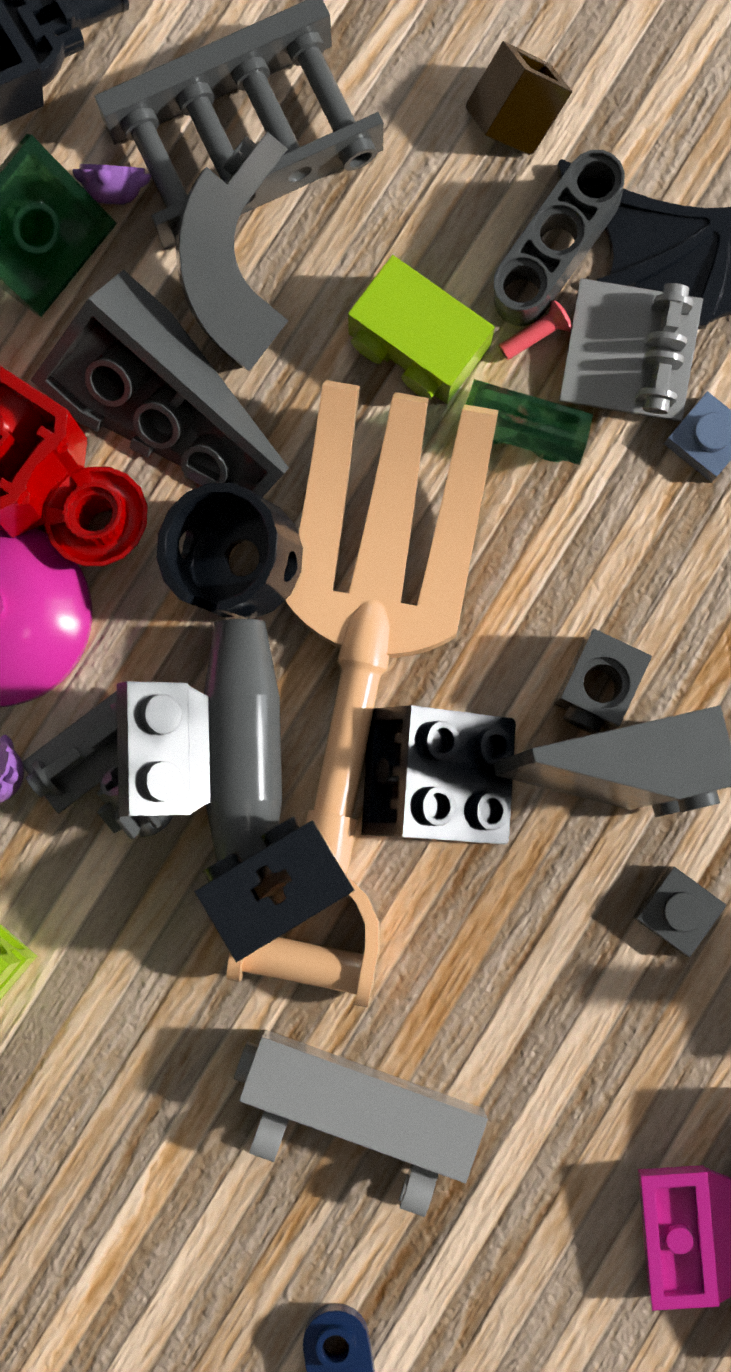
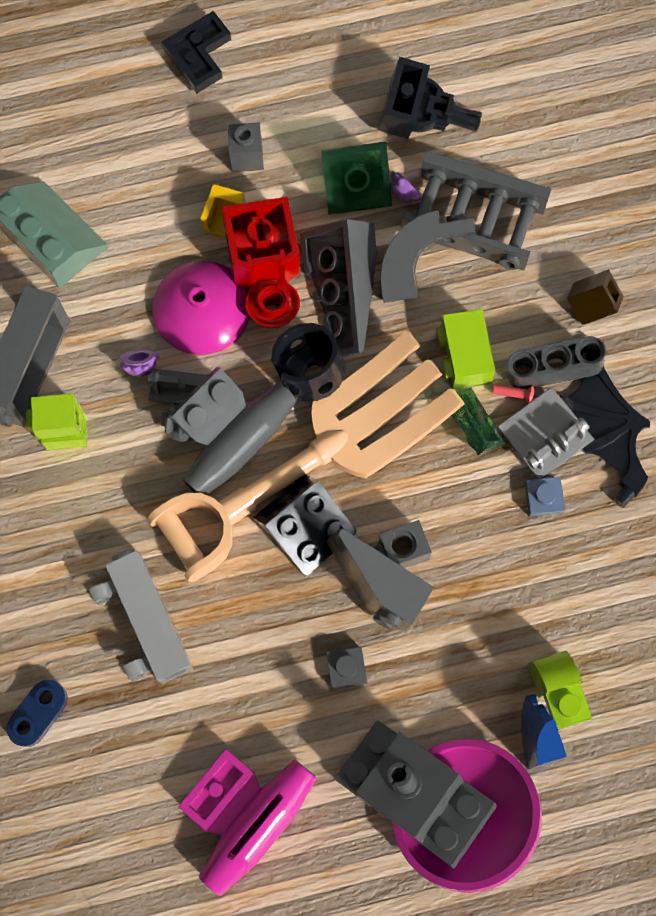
camera: 45 degrees right, 10 degrees down
(253, 922) = (211, 509): black brick -> none

